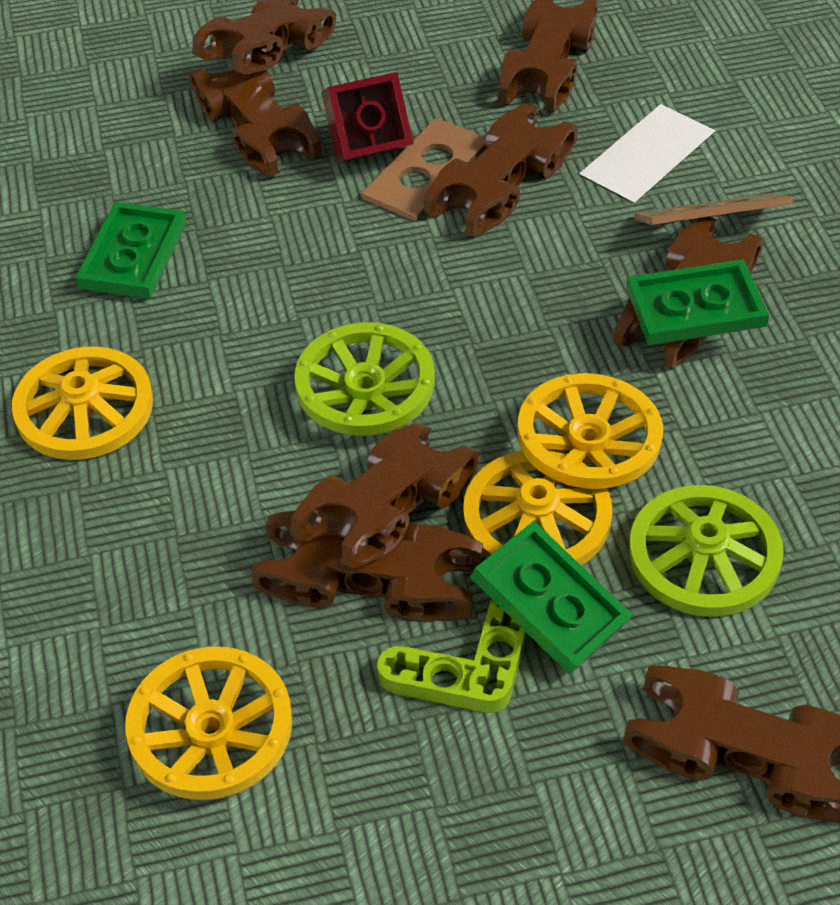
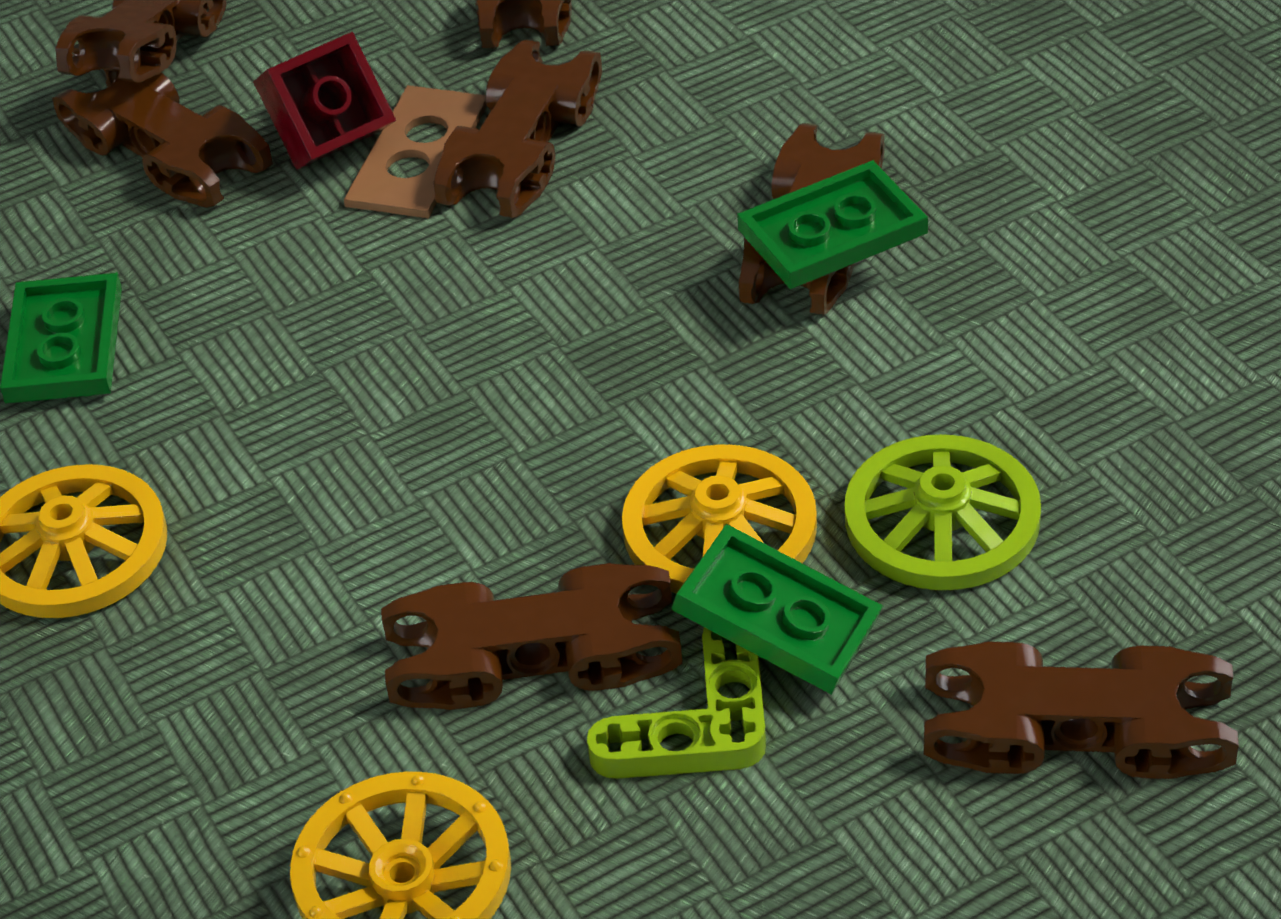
camera: 15 degrees left, 5 degrees down
(364, 382) = (442, 423): lime wheel -> none
(376, 504) = (523, 551): reddish brown piece -> none
(589, 435) = (753, 414): yellow wheel -> none
(647, 153) = (696, 69): white sticker -> none
(712, 208) = (807, 114): medium nougat piece -> none

